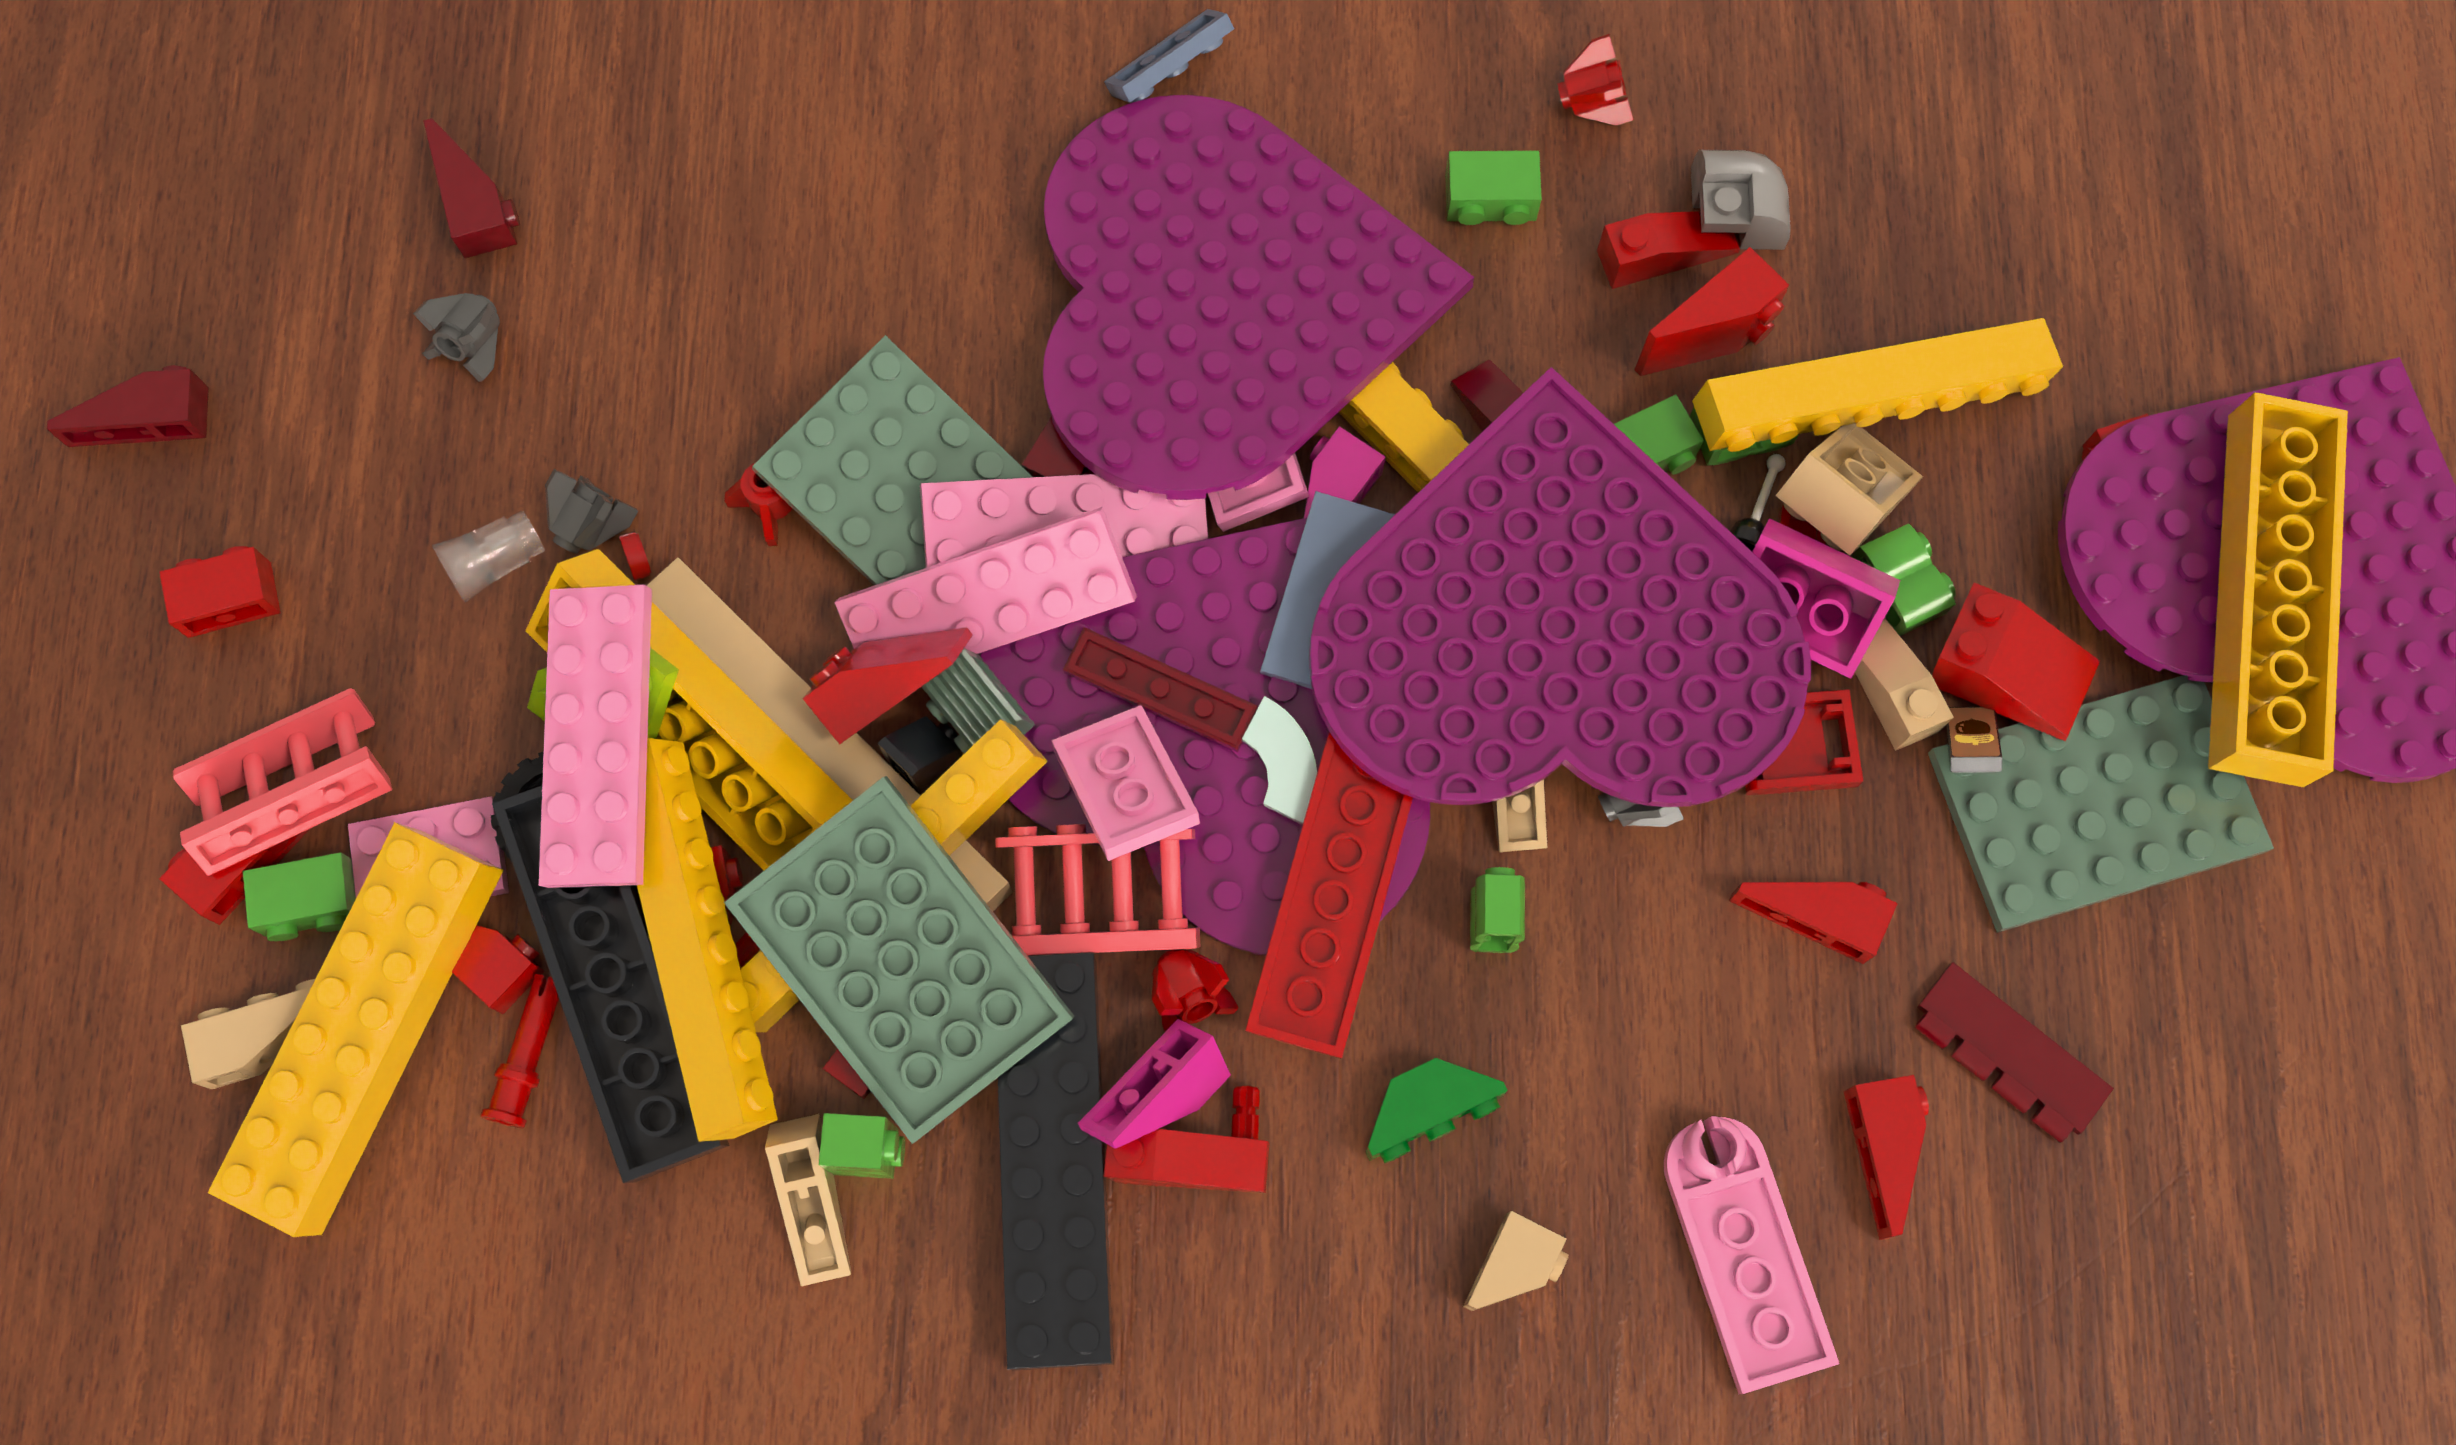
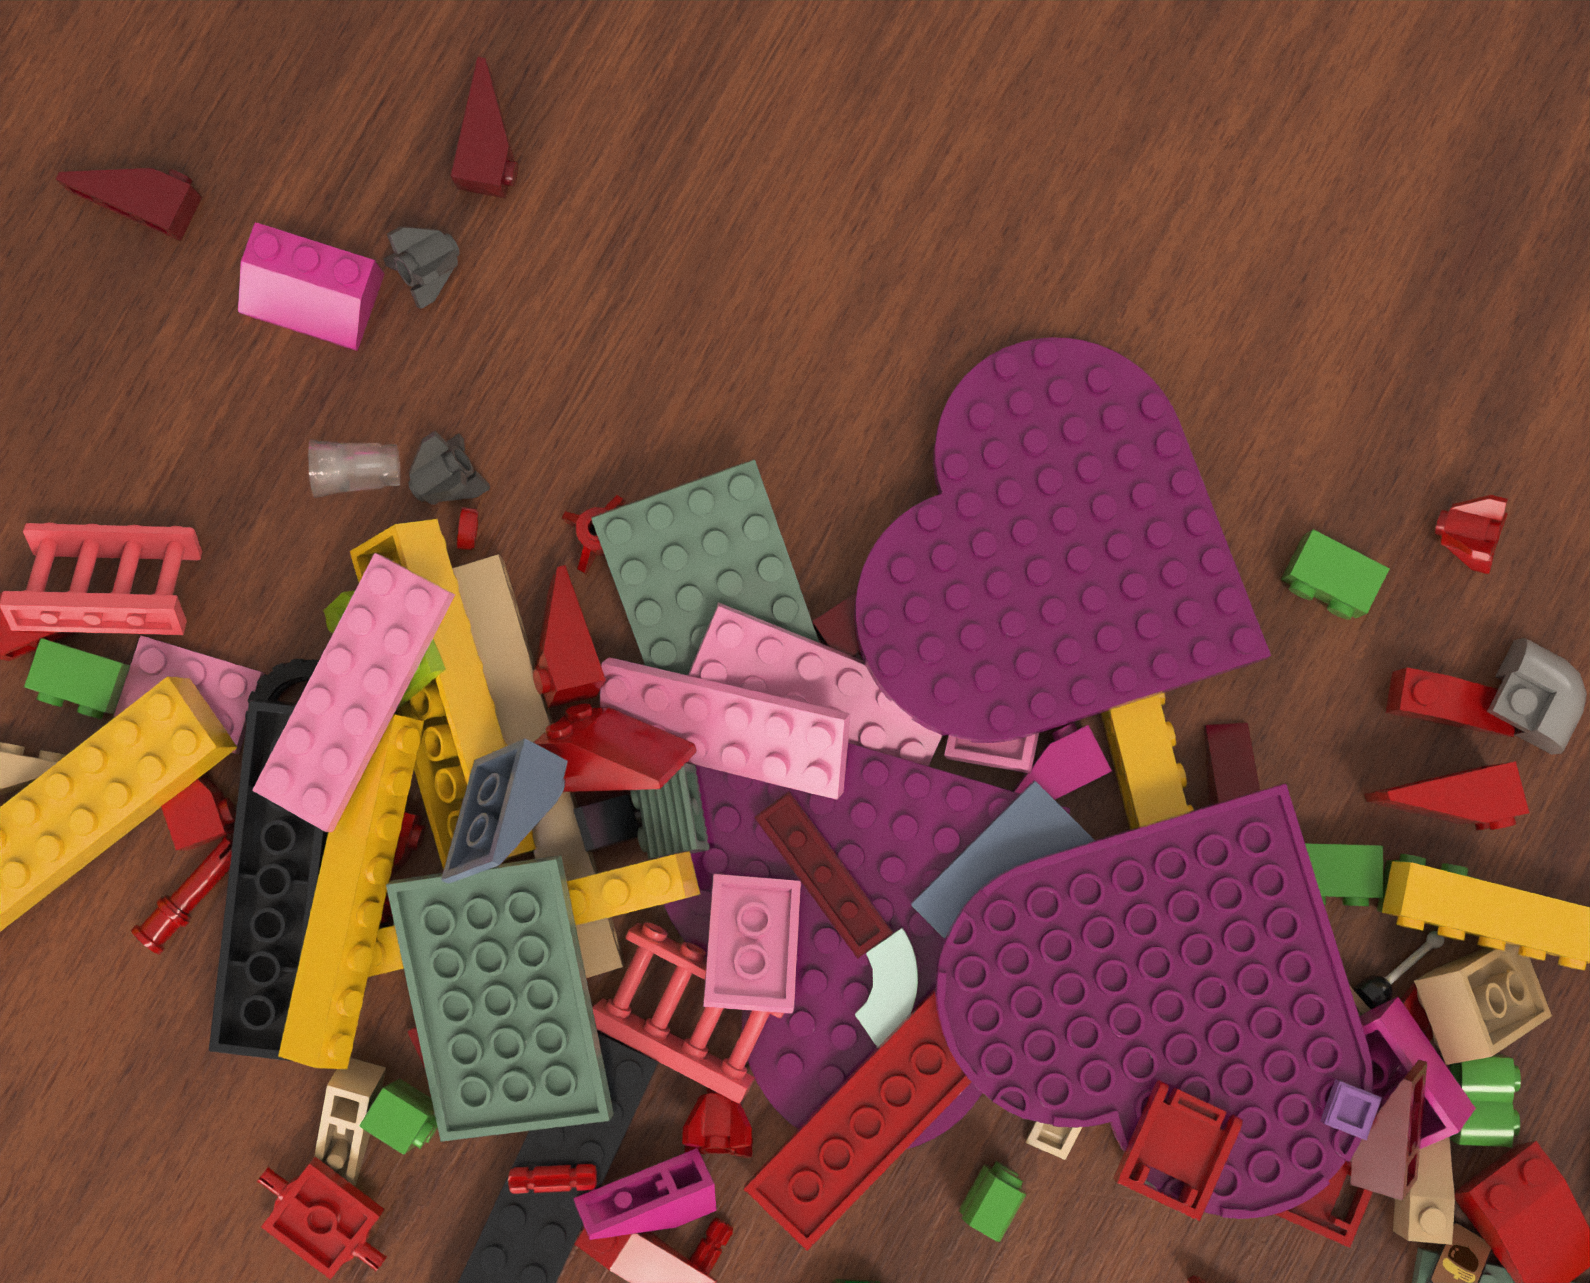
camera: 30 degrees right, 10 degrees up
(219, 591) = (130, 386): red brick -> none
(357, 410) = (307, 286): none -> dark pink slope
(795, 614) = (566, 656): none -> red slope
(801, 755) = (501, 805): none -> sand blue slope
(829, 1299) = (322, 1218): none -> red plate
(1046, 1115) = (552, 1178): none -> red axle
(1169, 56) = (1126, 312): sand blue plate -> none
(1643, 742) = (1181, 1141): none -> red container
(1783, 628) = (1350, 1109): none -> medium lavender tile
(1840, 649) = (1391, 1153): none -> dark red slope

